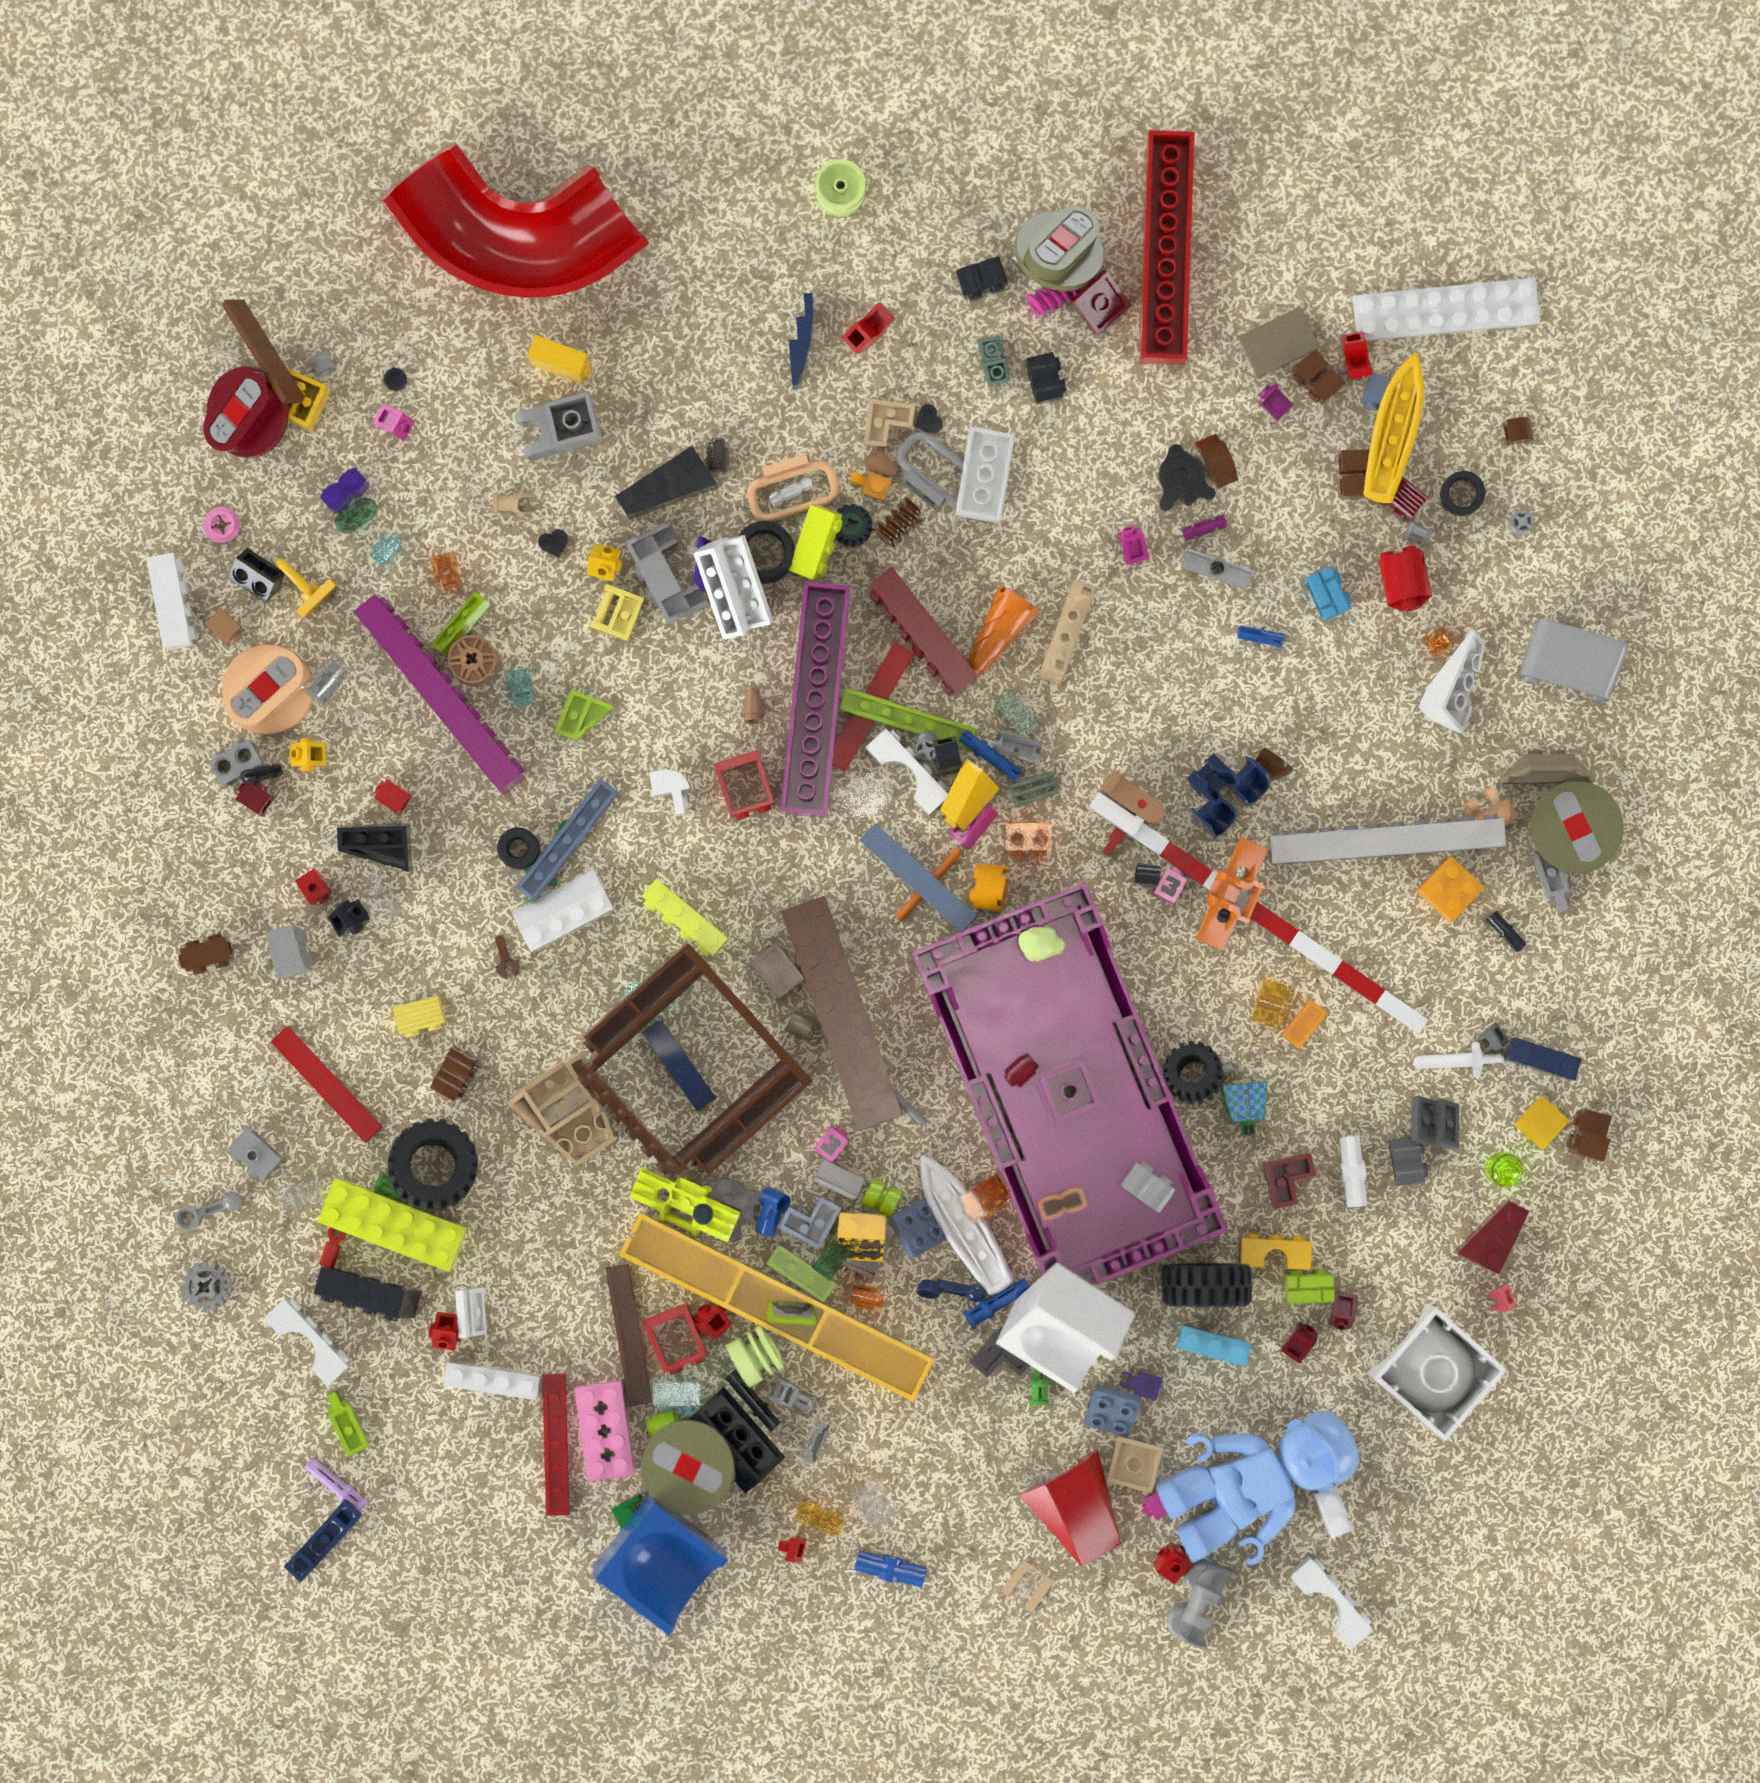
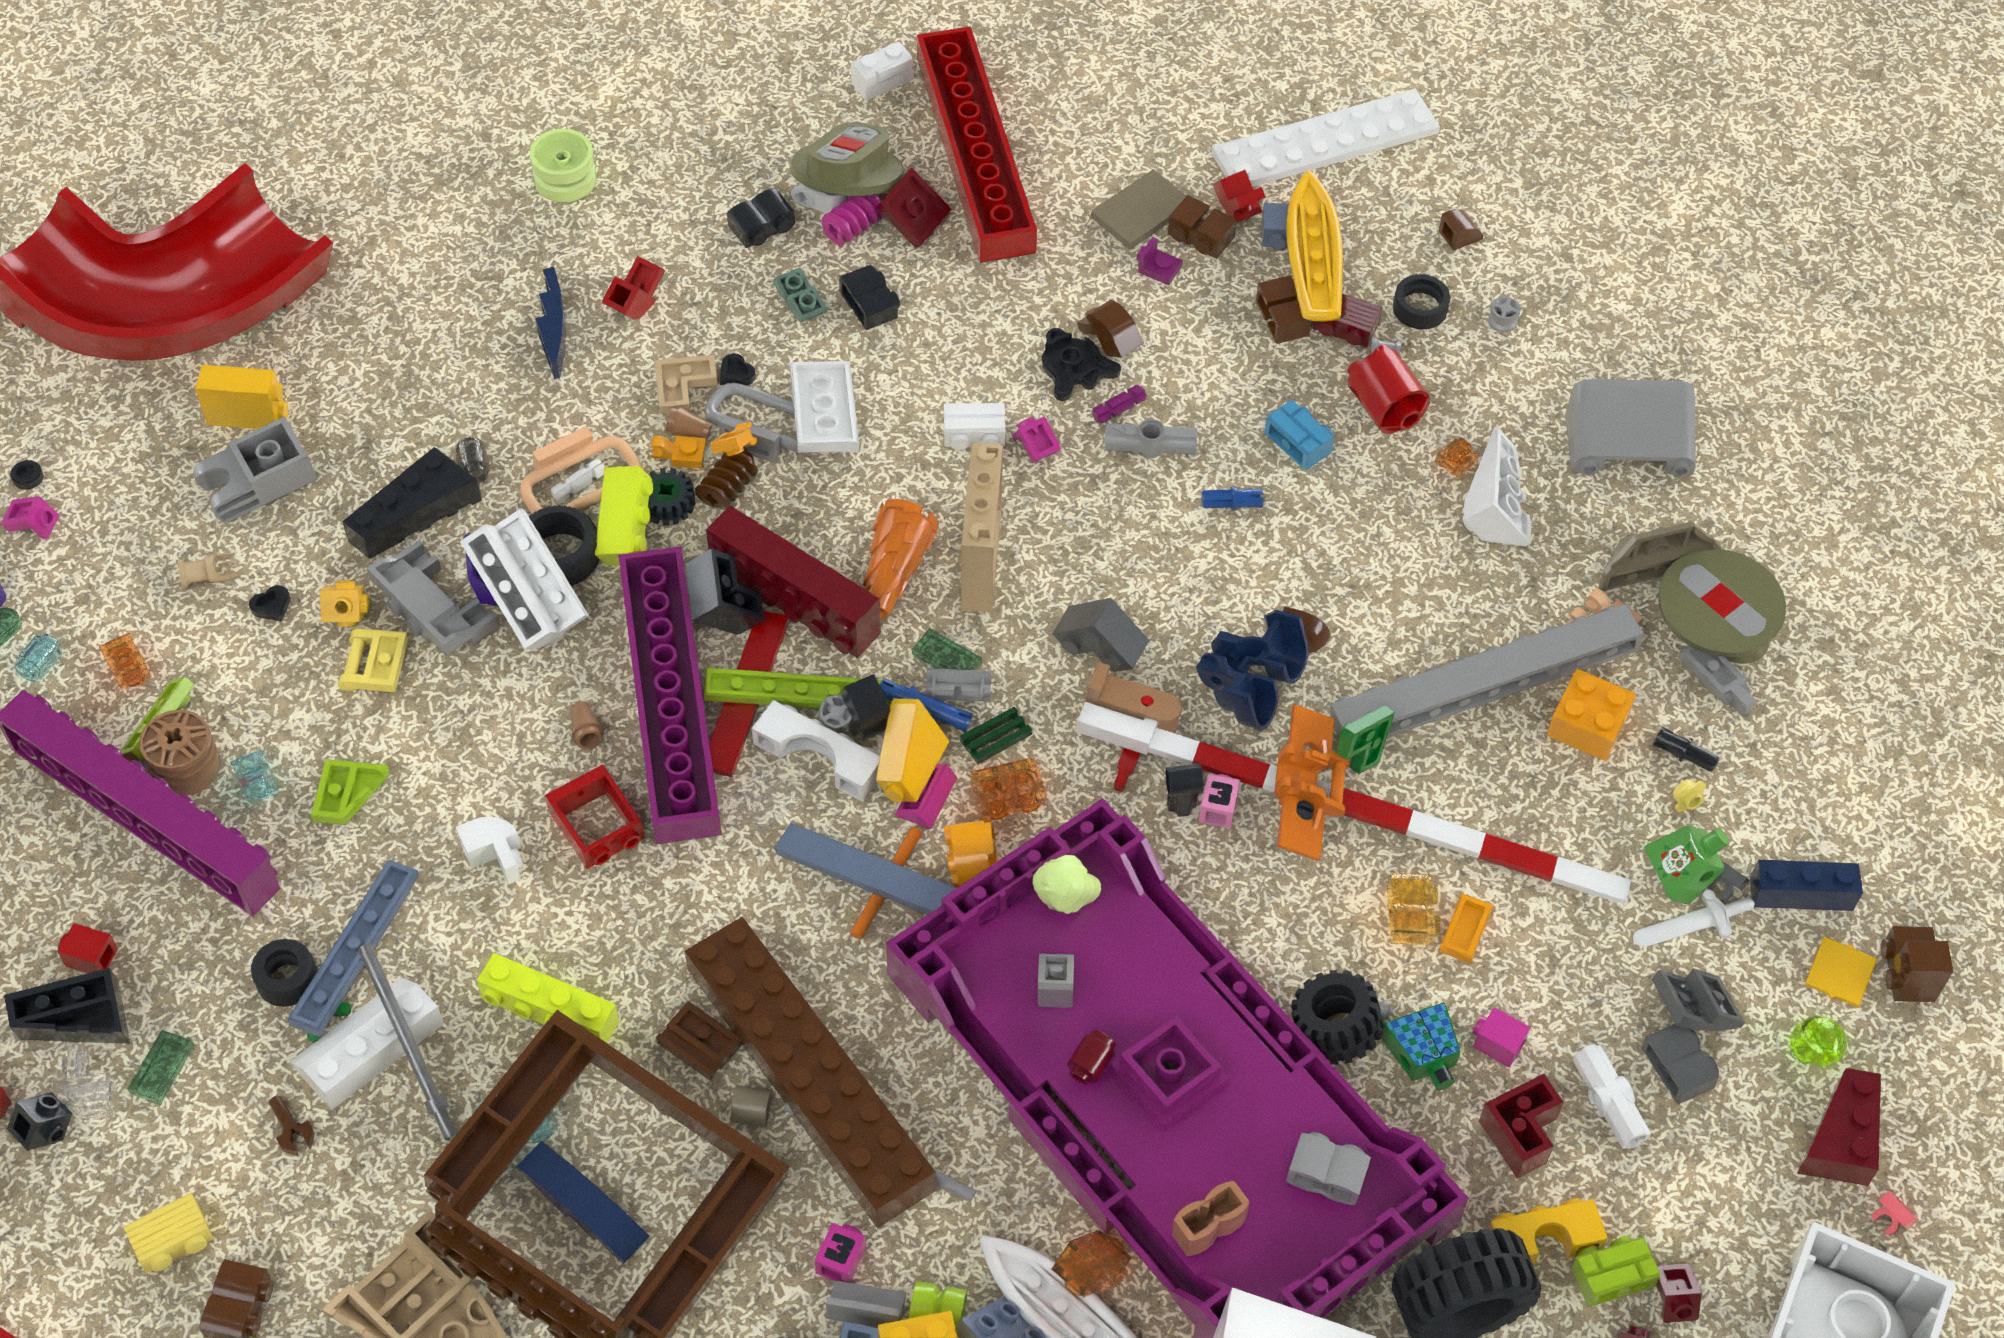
camera: 15 degrees left, 30 degrees down
(429, 893) = (161, 1067): none -> clear green tile
(599, 971) = (436, 1103): none -> flat silver bar
(865, 633) = (718, 598): none -> black brick
(909, 503) = (734, 441): none -> light orange plate
(1015, 1007) = (1055, 980): none -> light grey slope
(1091, 522) = (973, 424): none -> white brick
(1114, 149) = (882, 70): none -> white brick
(1127, 734) = (1104, 630): none -> dark grey brick
(1276, 878) = (1365, 739): none -> green plate
(1296, 1111) = (1500, 1036): none -> dark pink brick
(1468, 1022) = (1687, 861): none -> bright green torso
(1493, 968) = (1689, 795): none -> light yellow plate

